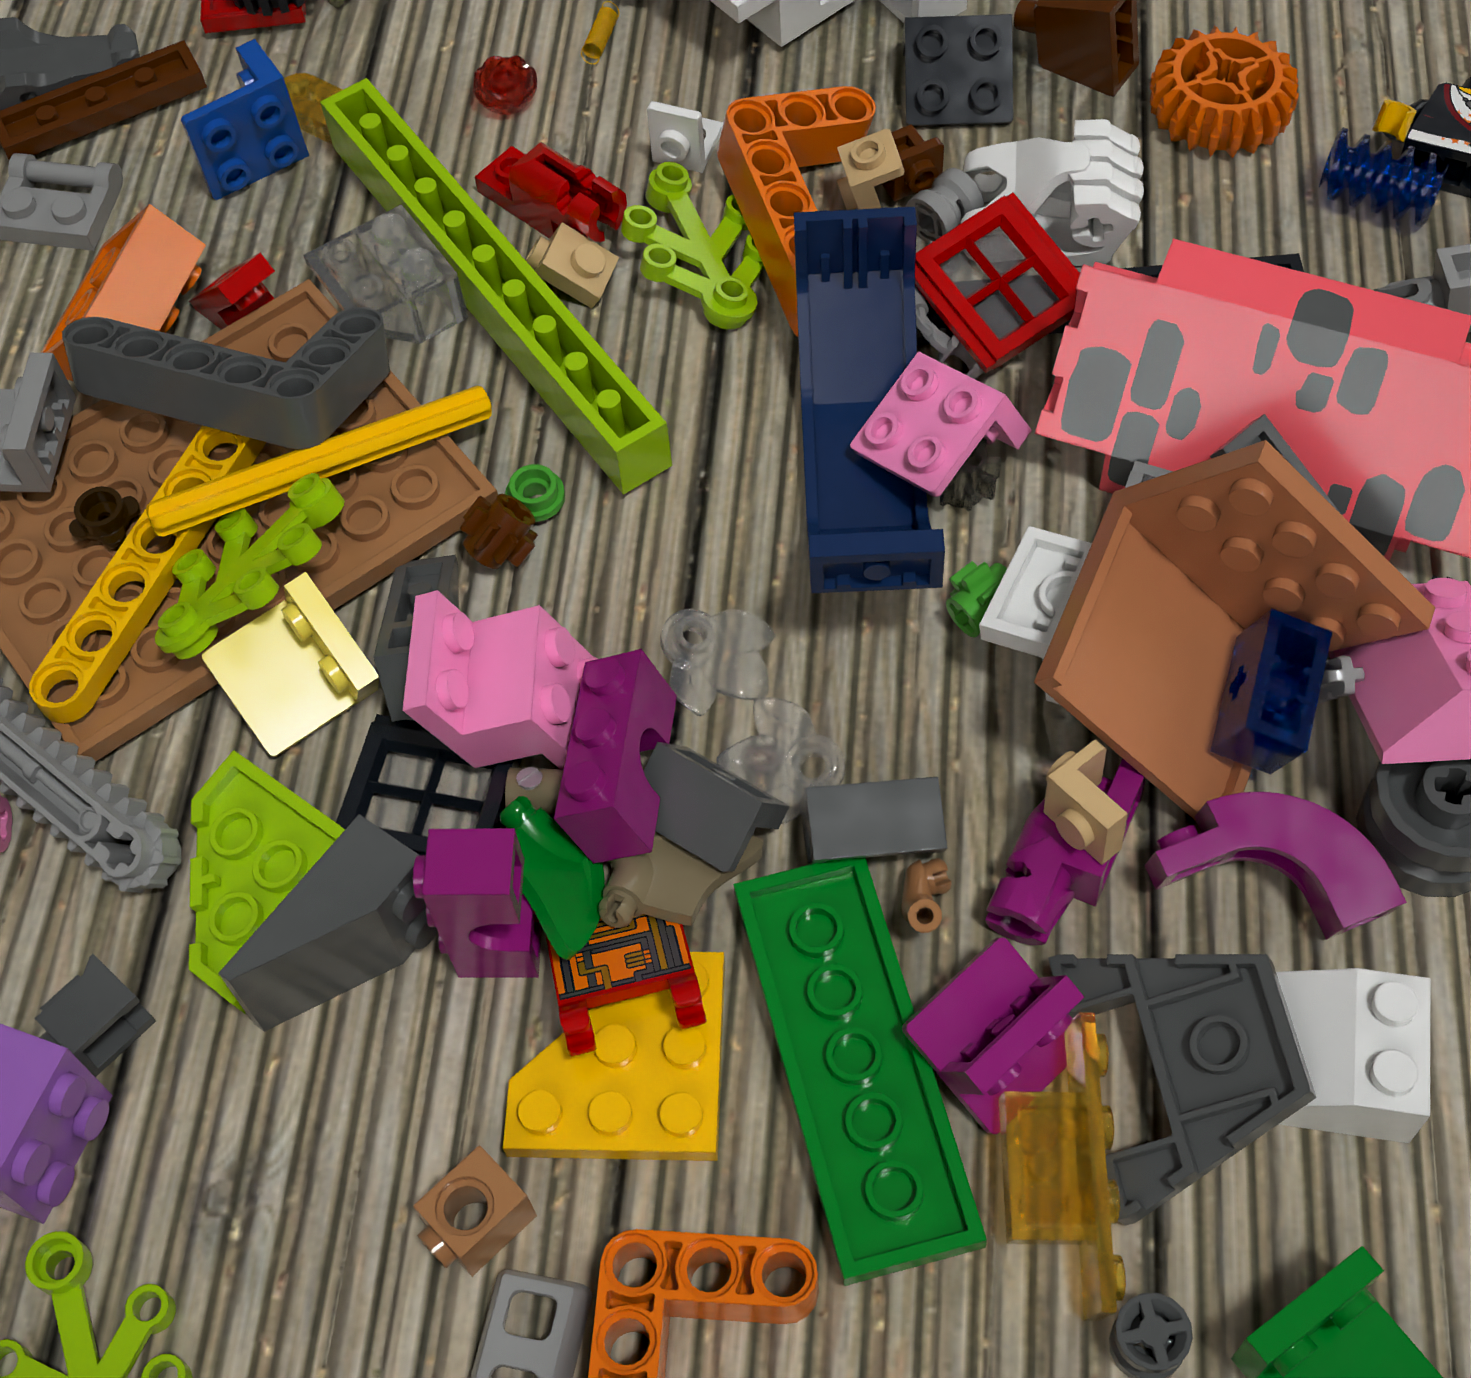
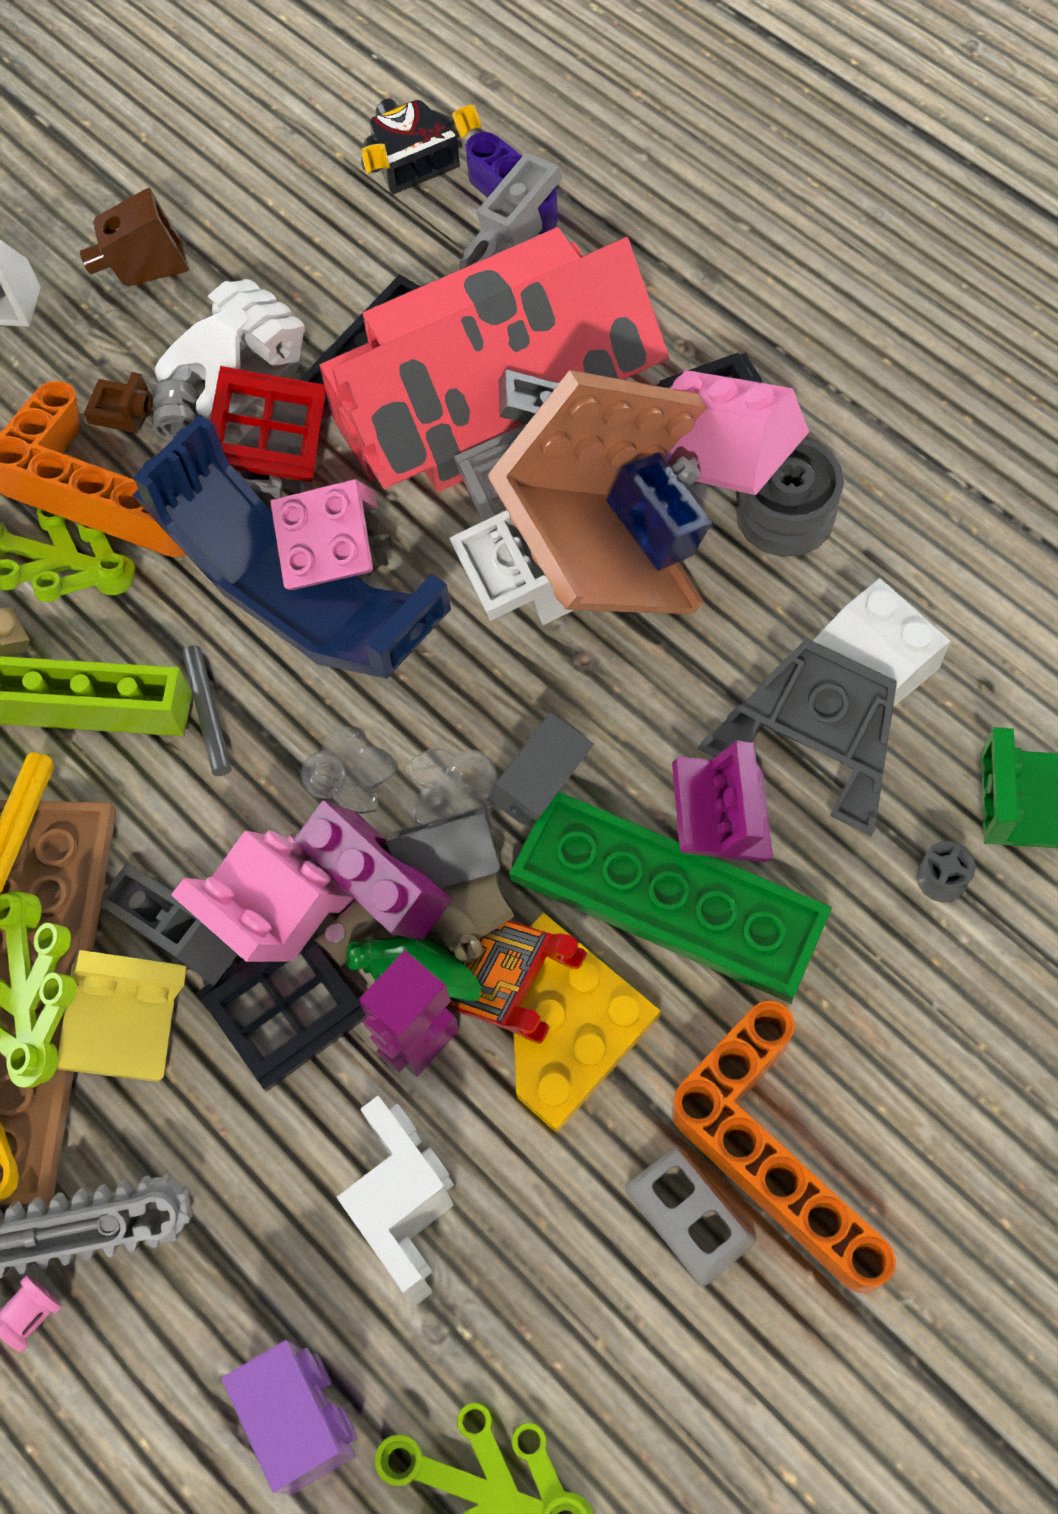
camera: 50 degrees left, 5 degrees up
(94, 1017) = (247, 1320): dark grey window -> none
(249, 856) = (244, 1144): lime plate -> none
(296, 1051) = (399, 1198): none -> white bracket
(333, 930) = (334, 1081): dark grey slope -> none
(473, 1181) = (577, 1151): medium nougat brick -> none
(499, 531) = (142, 823): reddish brown gear -> none
(537, 480) = (123, 776): bright green plate -> none
(666, 491) = (206, 711): none -> dark grey bar
(866, 165) = (108, 427): tan bracket -> none
(919, 886) = (607, 788): medium nougat arm -> none
(958, 70) = (87, 325): black bracket -> none
(973, 594) = (463, 602): bright green gear -> none
(1049, 873) = (649, 690): magenta plate -> none
(1059, 1170) = (825, 837): clear yellow bracket -> none
(1081, 809) = (643, 655): tan bracket -> none
(1223, 91) = (253, 217): orange gear -> none
(1309, 844) = (758, 570): magenta arch -> none
(1382, 177) = (393, 195): clear blue piece -> none

